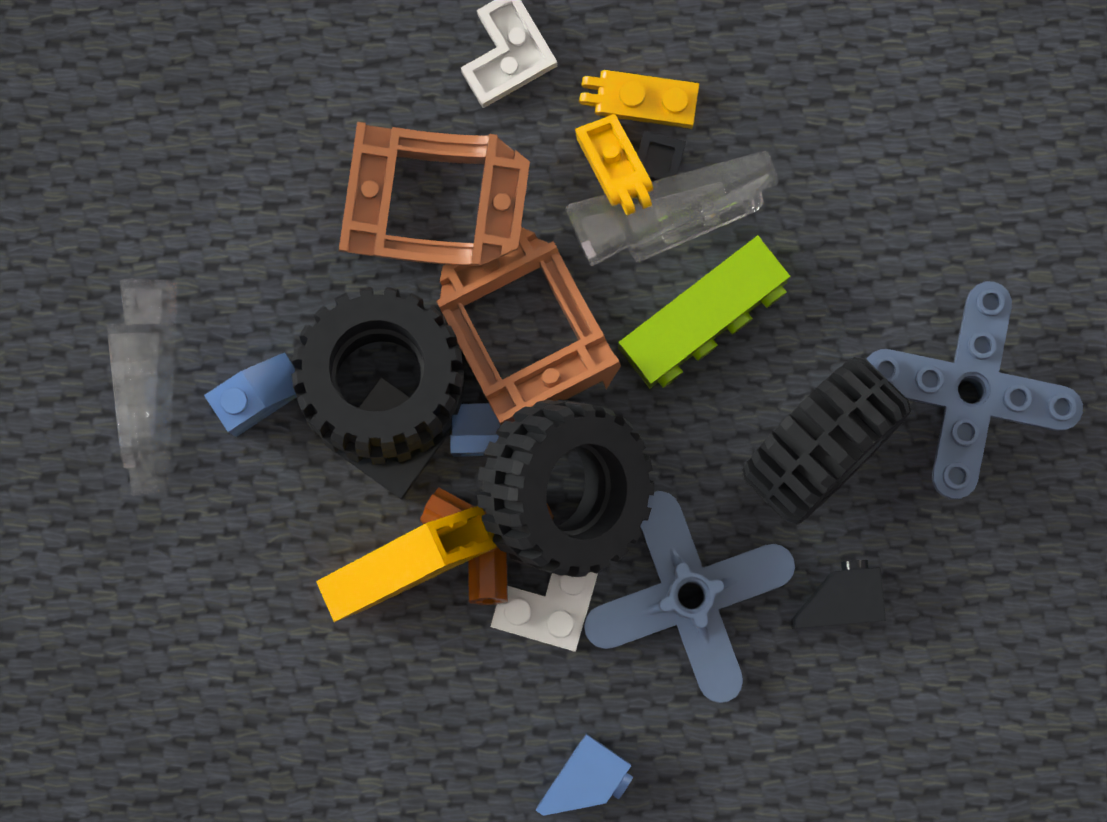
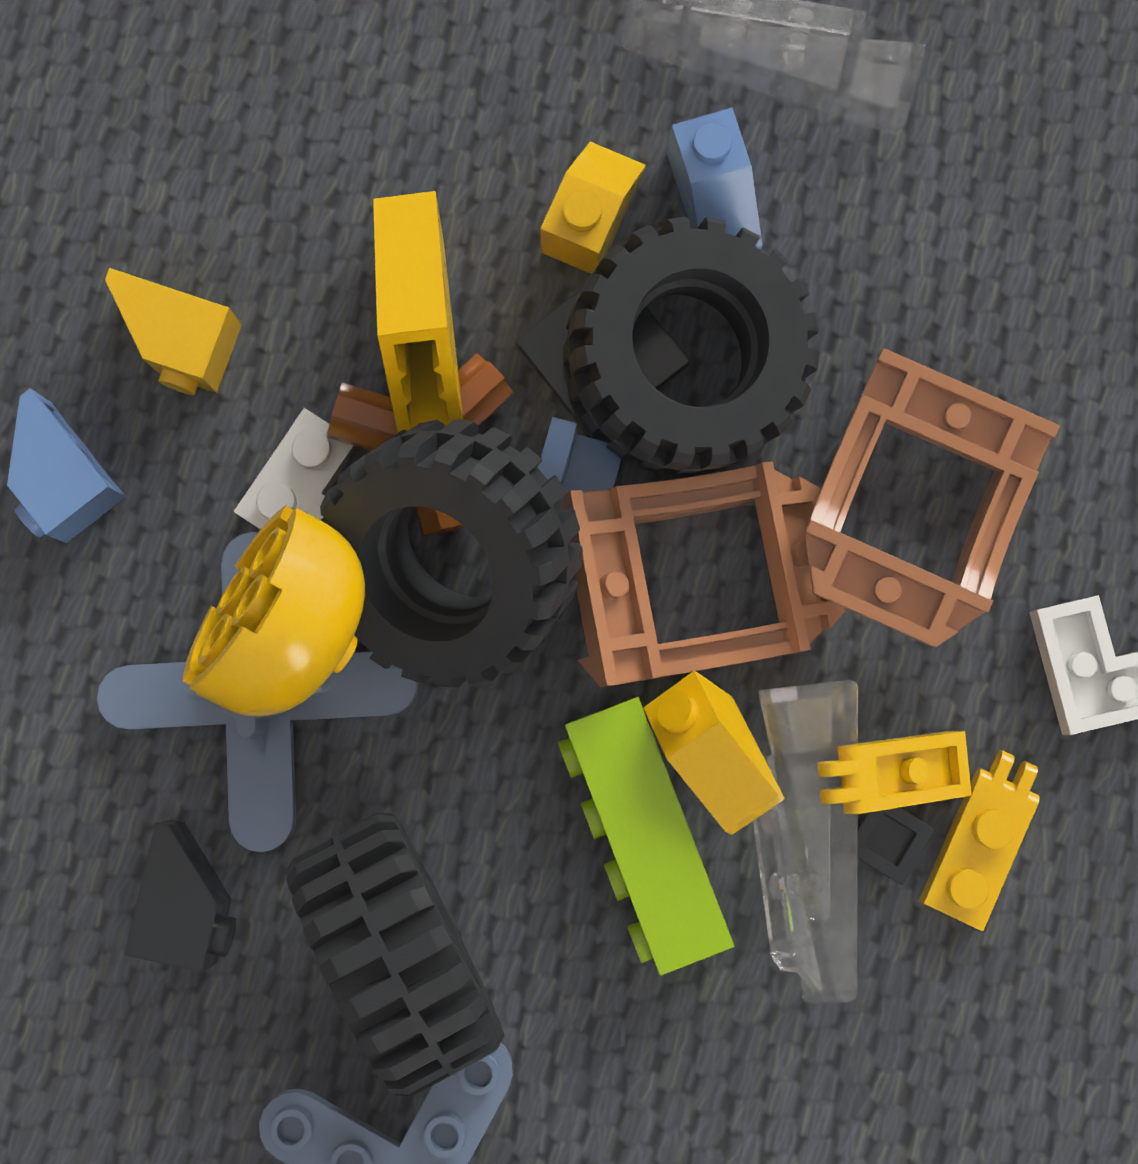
camera: 100 degrees right, 0 degrees up
(291, 473) = (590, 207): none -> yellow slope
(465, 730) = (176, 332): none -> yellow slope
(638, 283) = (714, 751): none -> yellow slope
(642, 577) = (280, 619): none -> yellow cylinder

